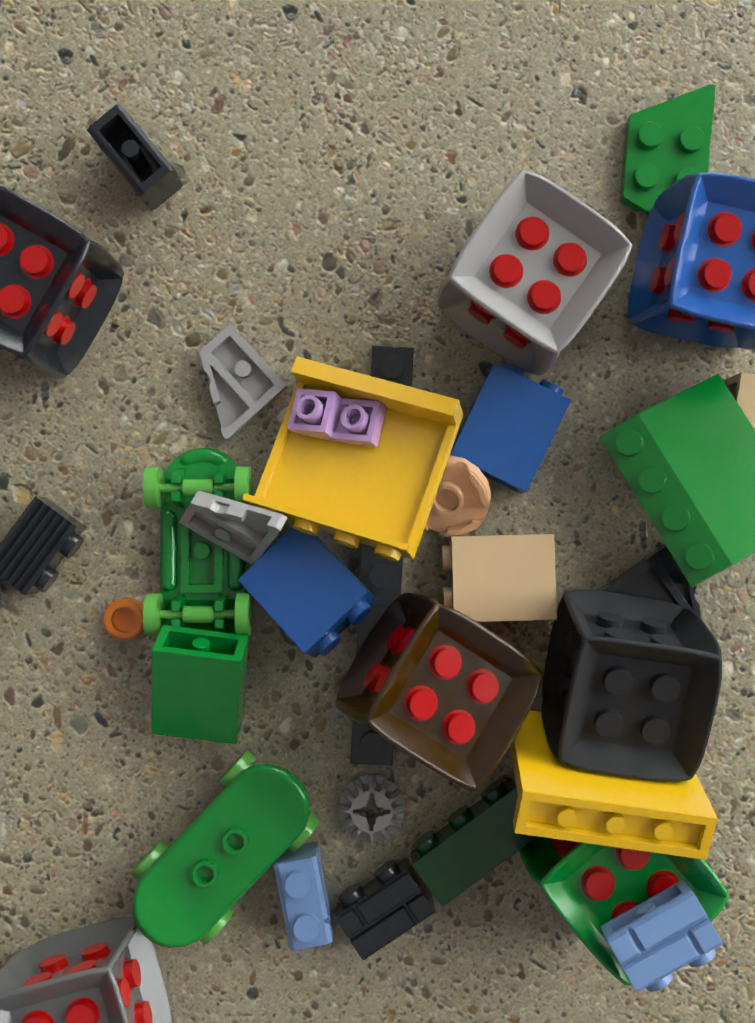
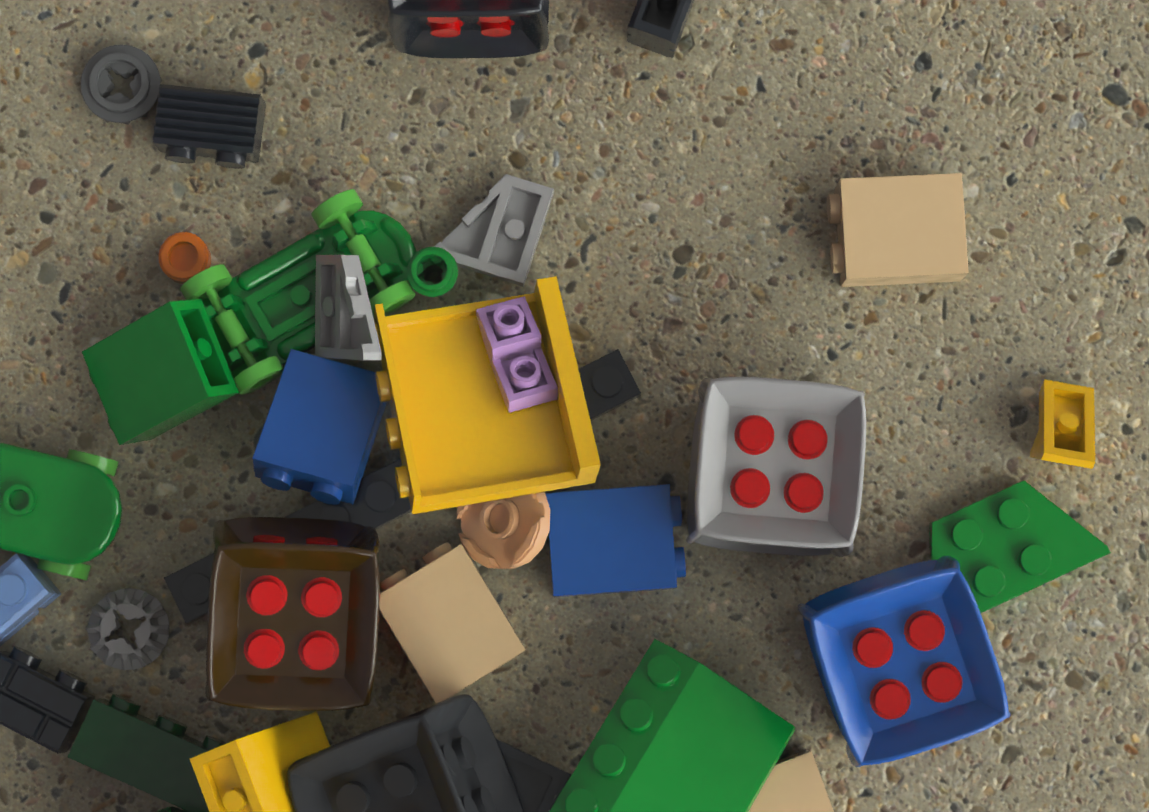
camera: 65 degrees right, 5 degrees down
(233, 437) = (428, 261): none -> green cone
(403, 94) = (899, 230): none -> tan brick
(613, 59) = (1065, 425): none -> yellow slope

